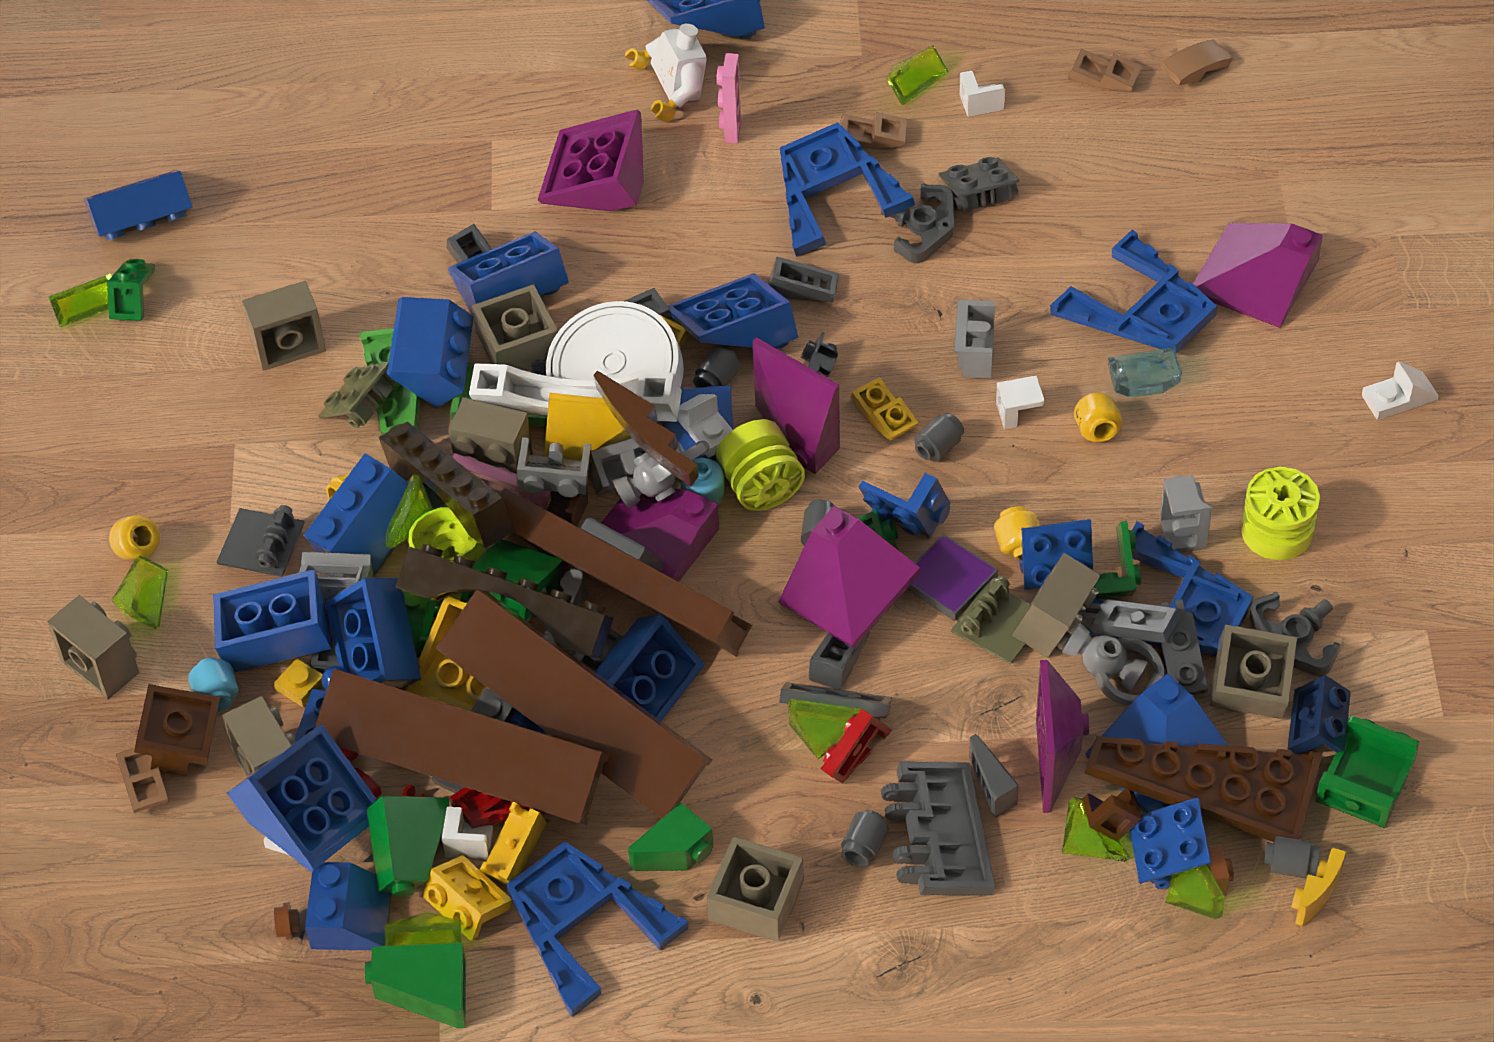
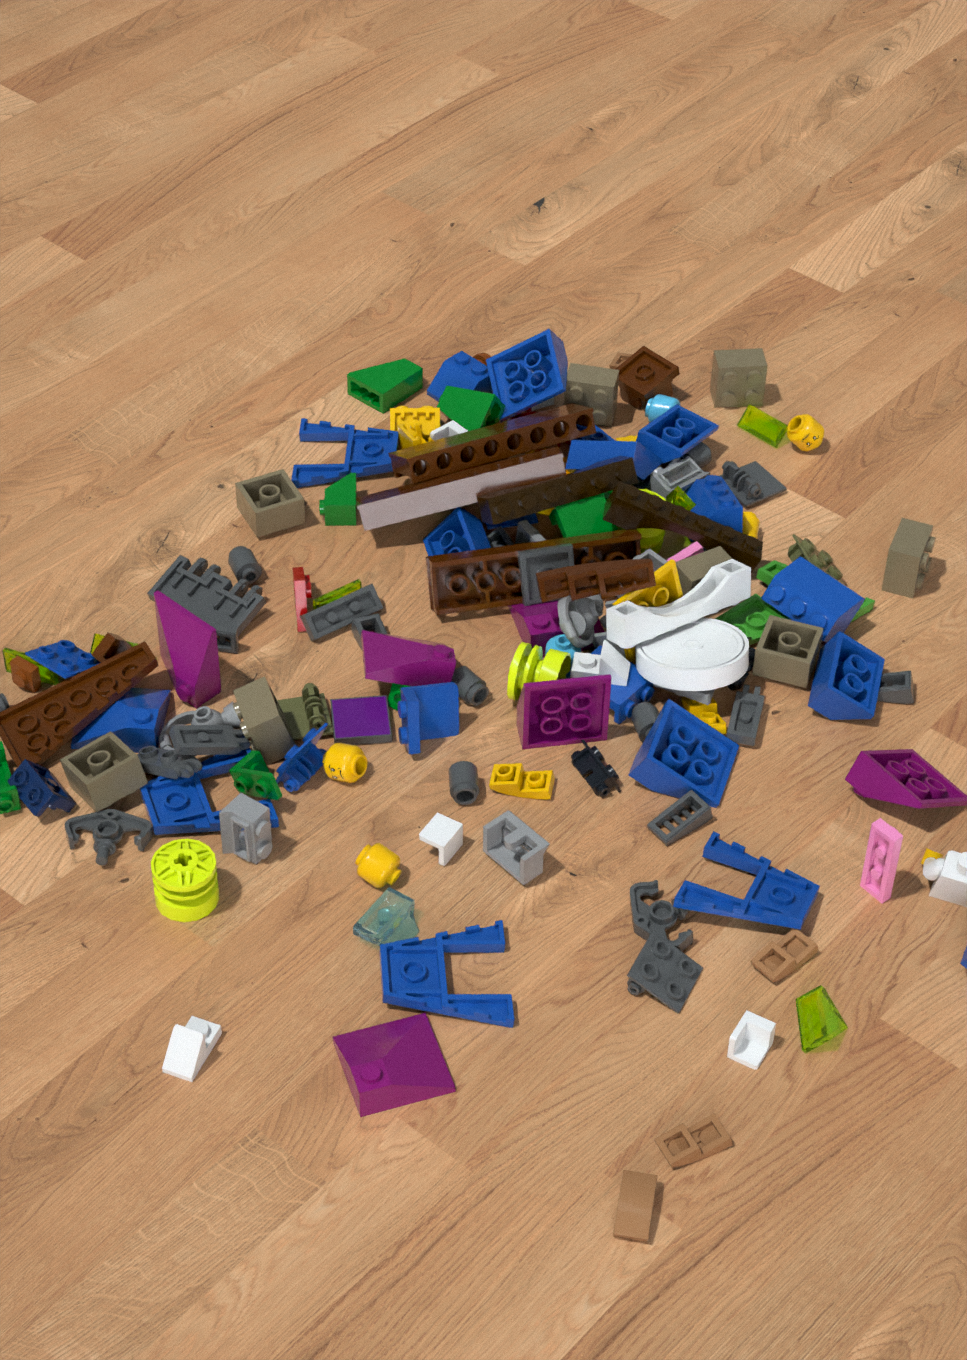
camera: 130 degrees right, 10 degrees down
(423, 929) = (416, 399): clear neon green slope -> none

